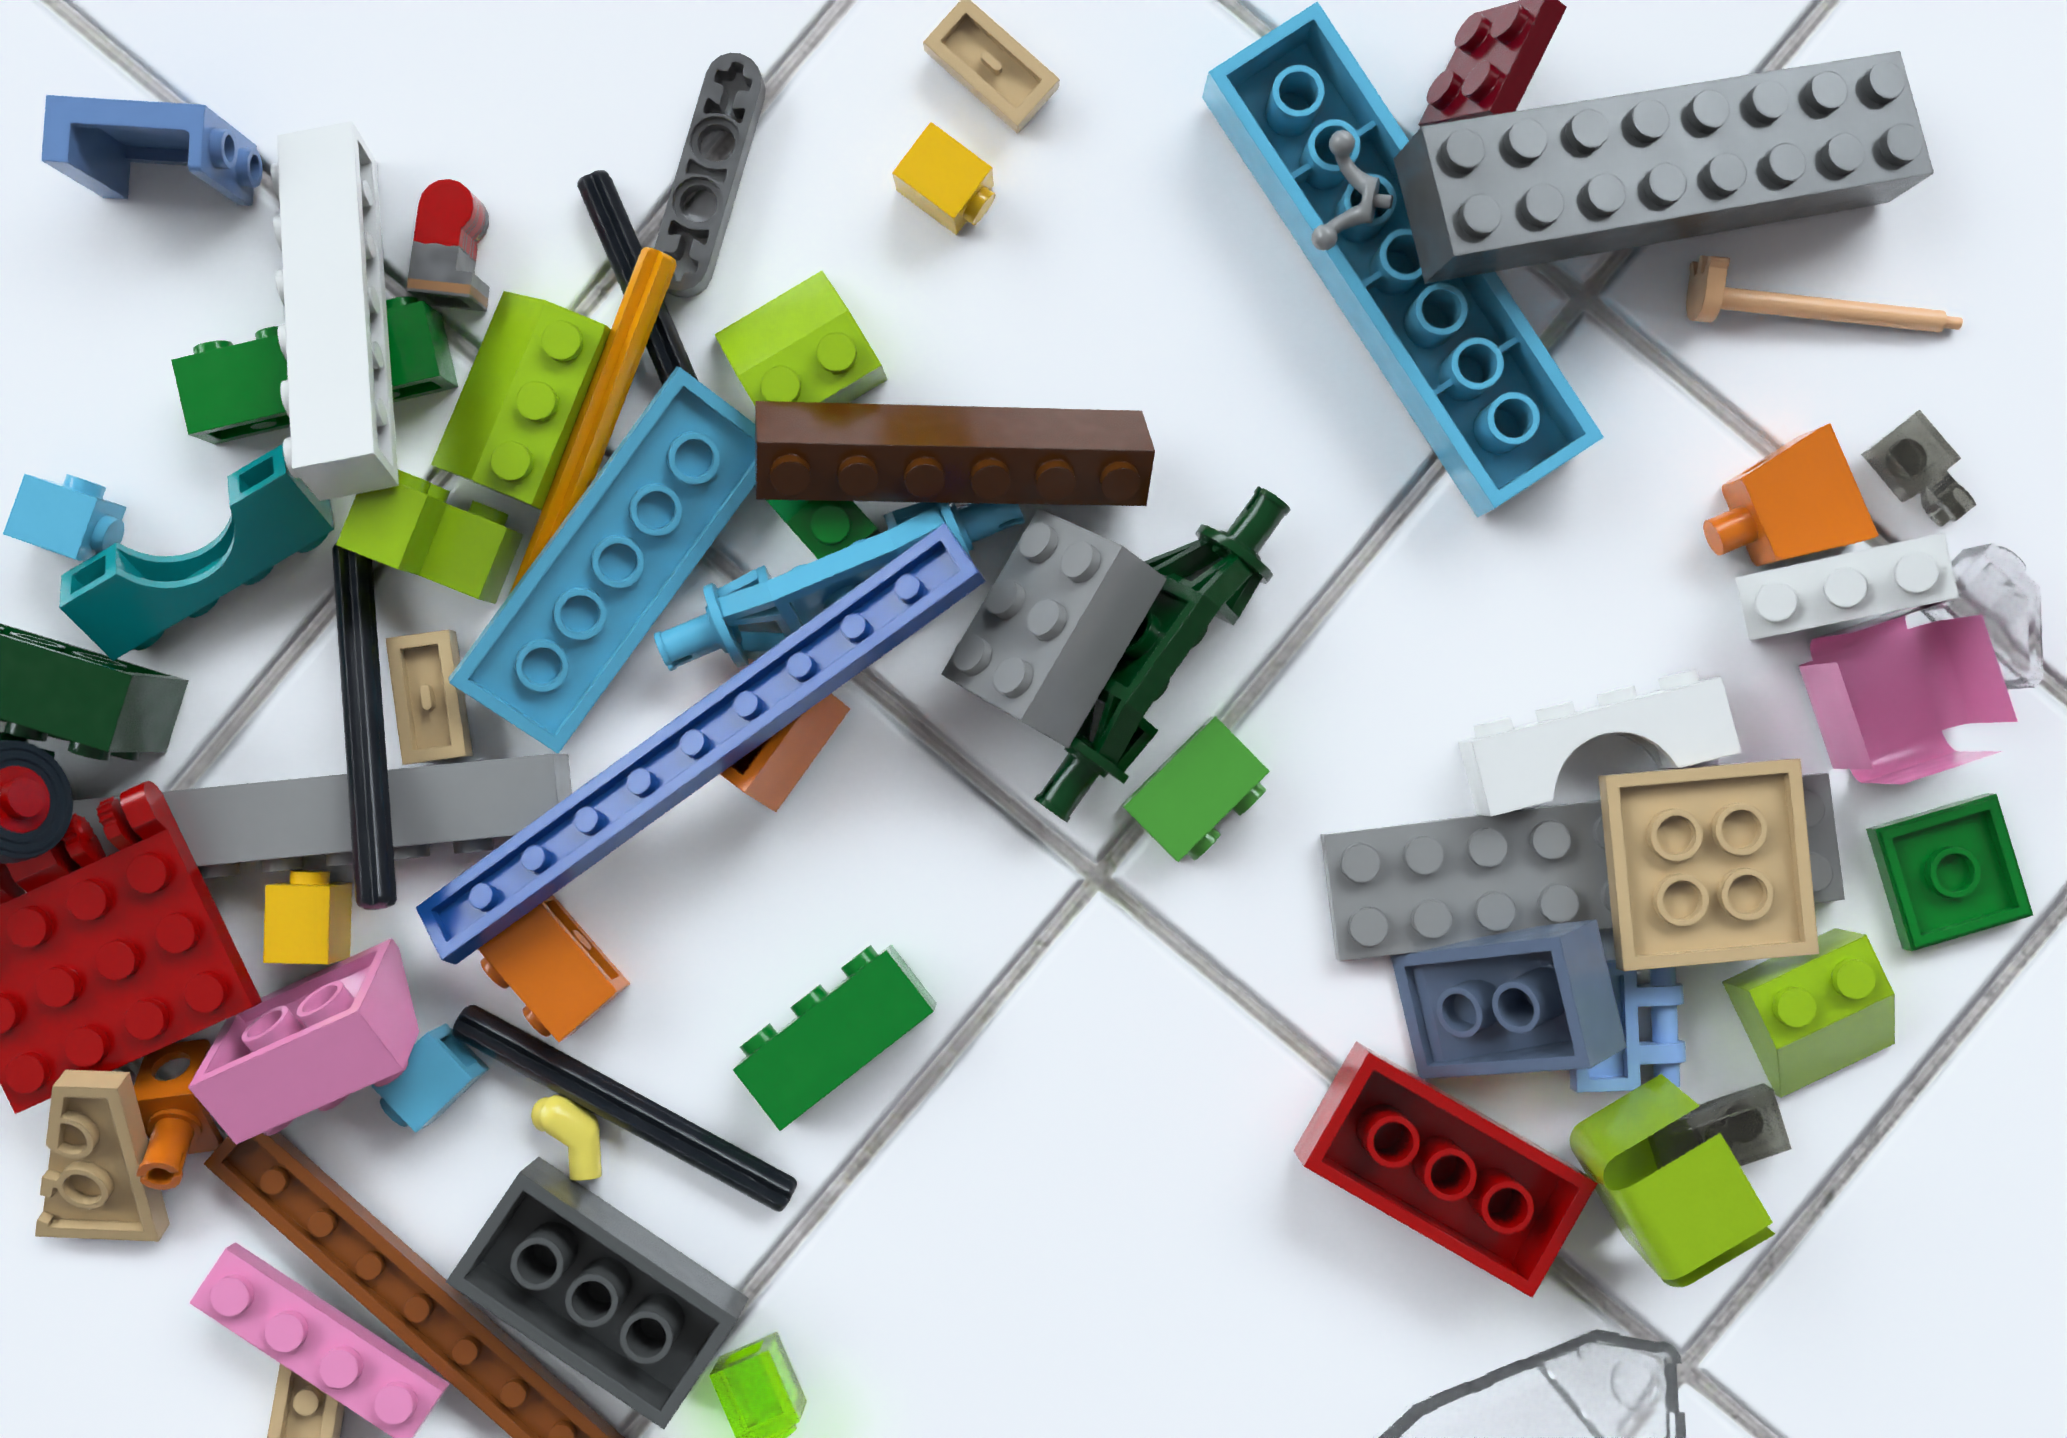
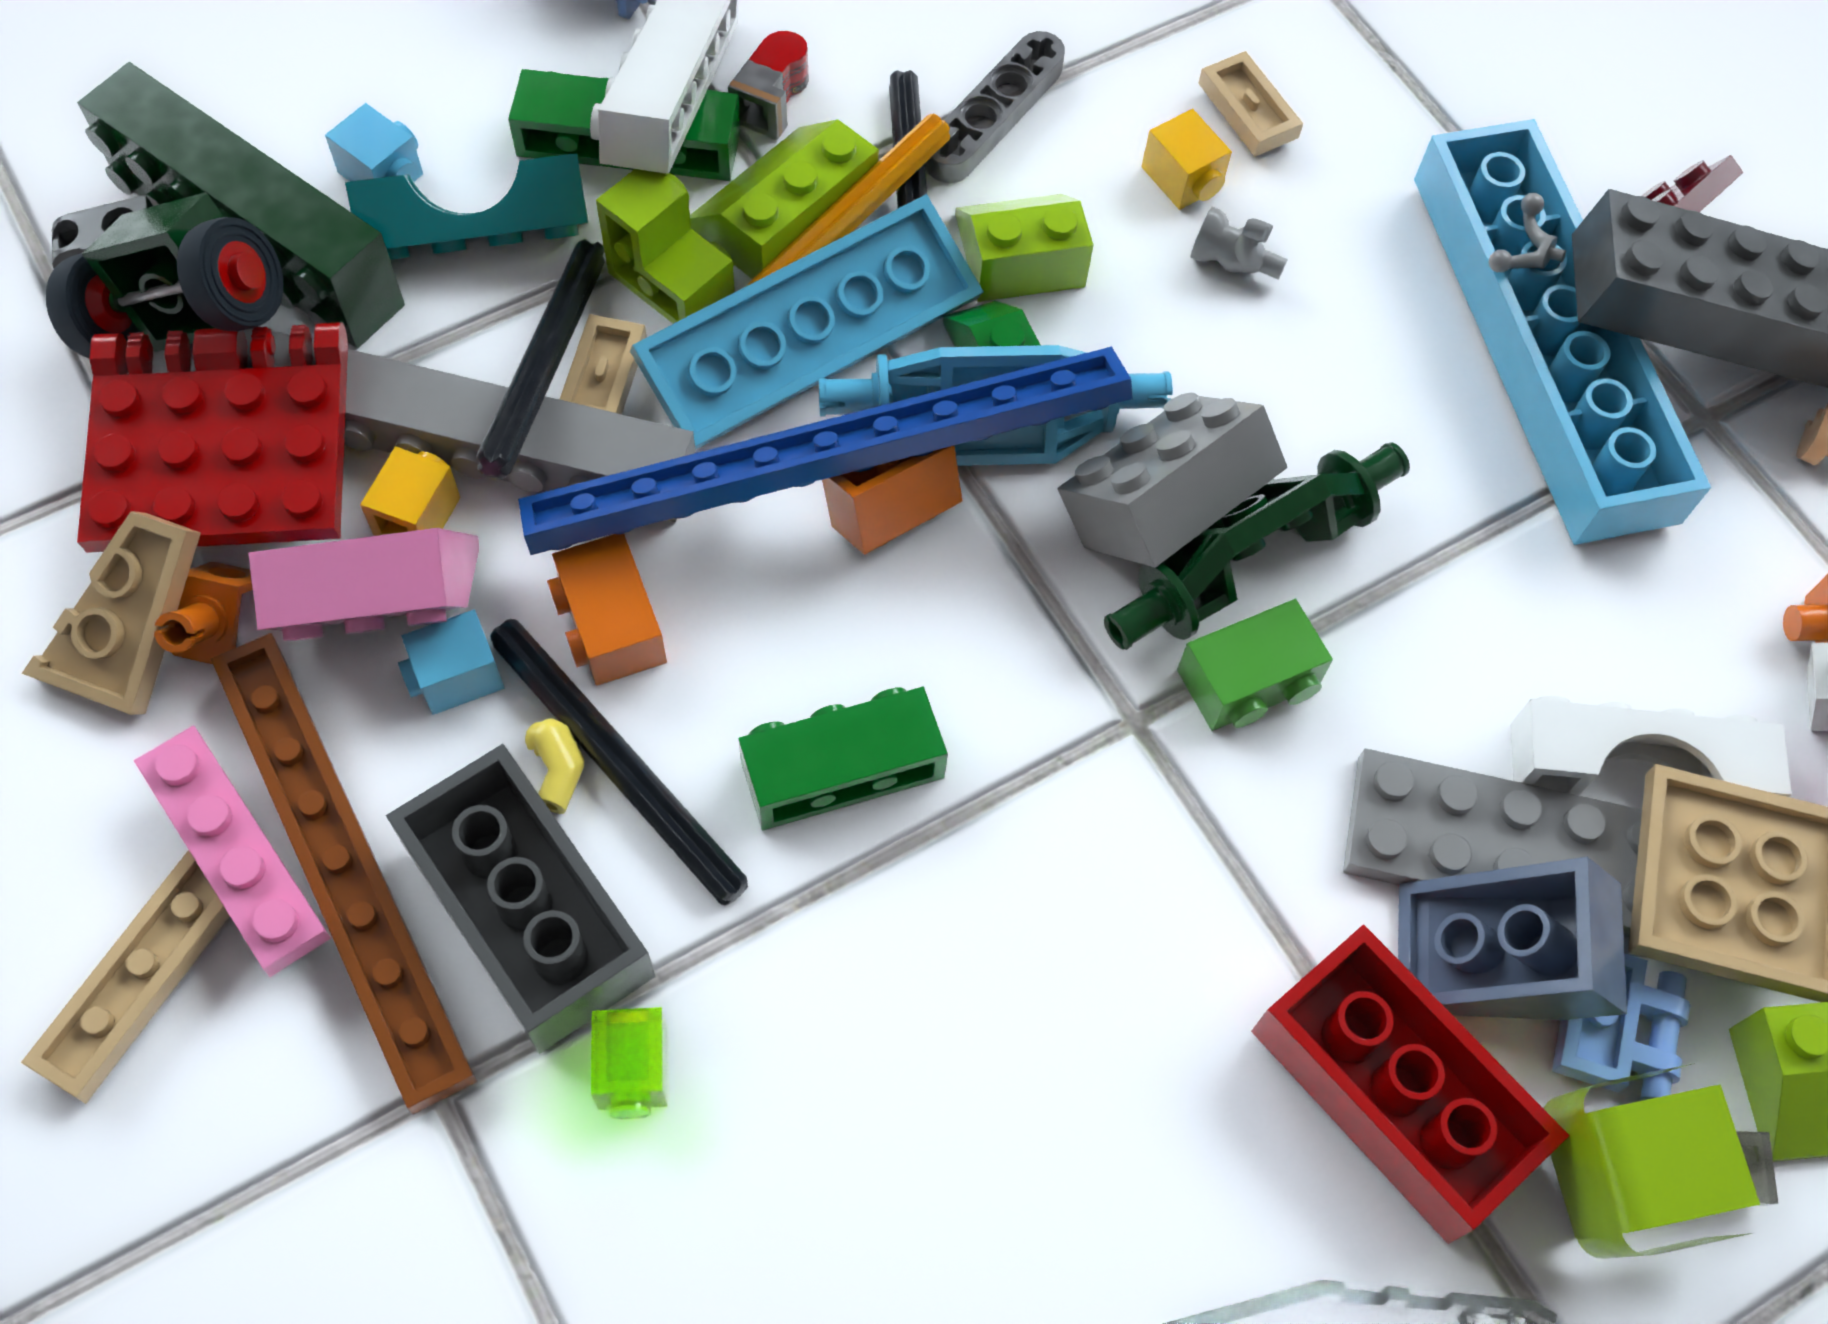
camera: 15 degrees right, 25 degrees down
(951, 454) = (1131, 322): reddish brown brick -> none
(1035, 278) = (1237, 248): none -> light grey piece

